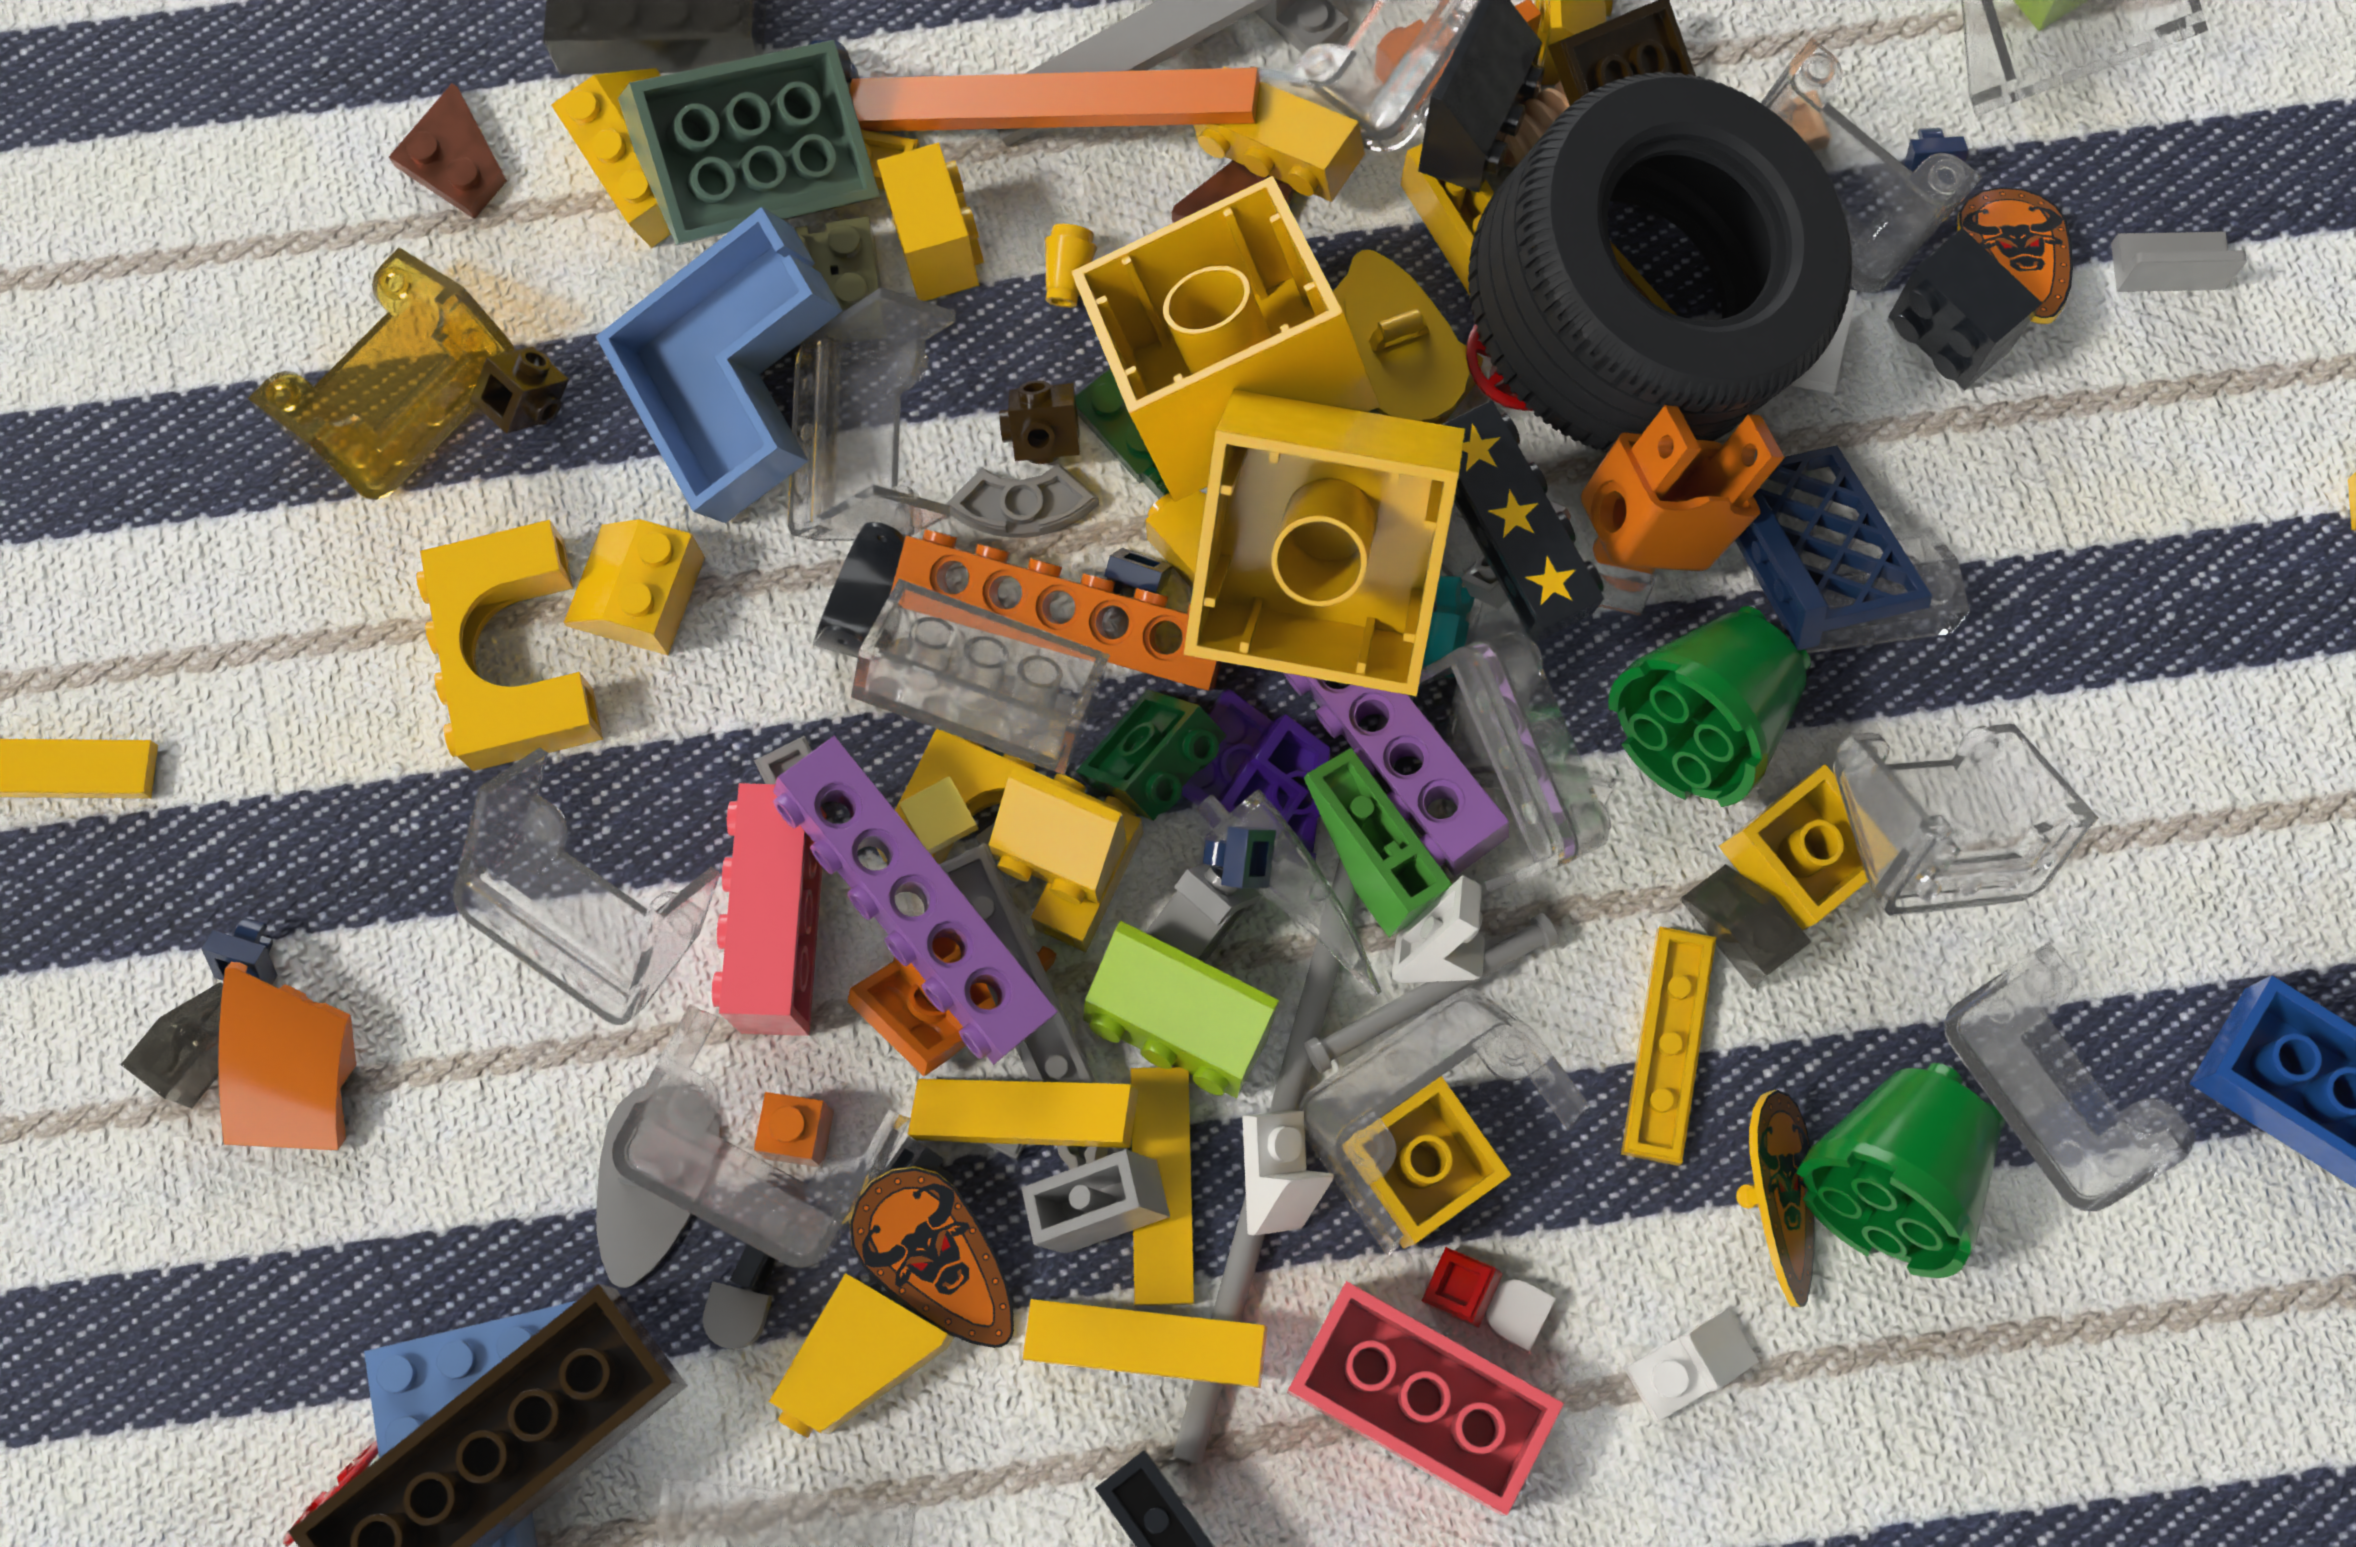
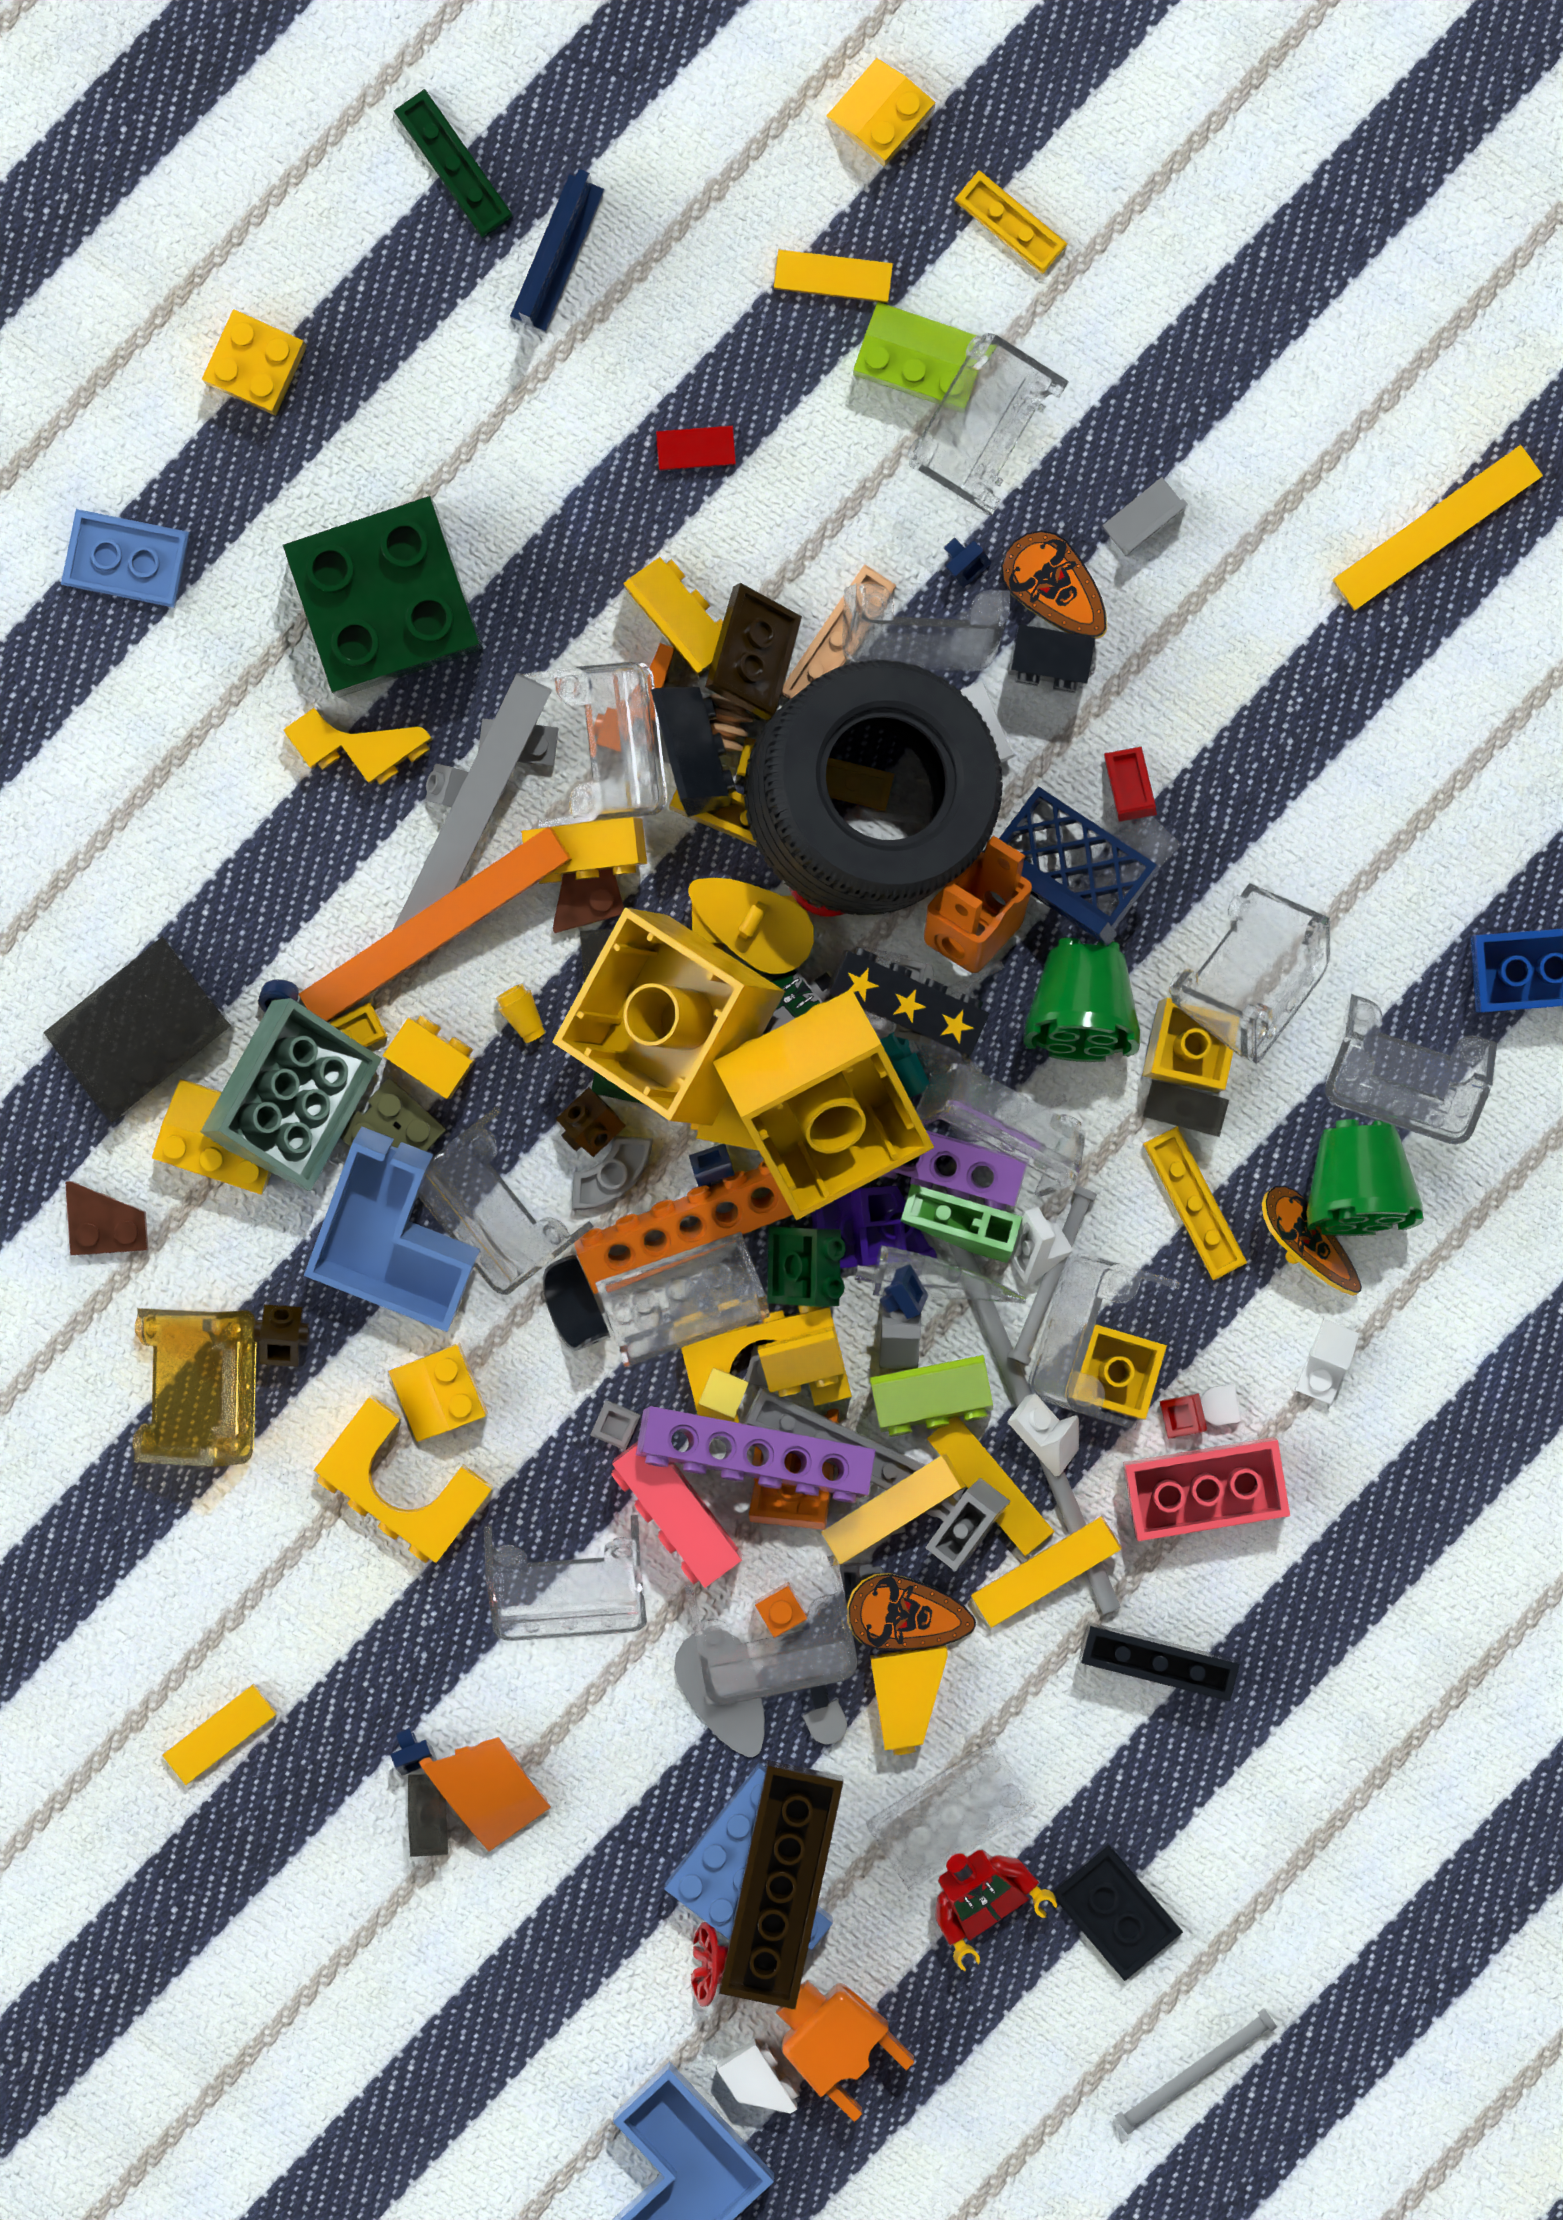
camera: 45 degrees left, 15 degrees up
(1951, 513) = (1130, 784): none -> red tile

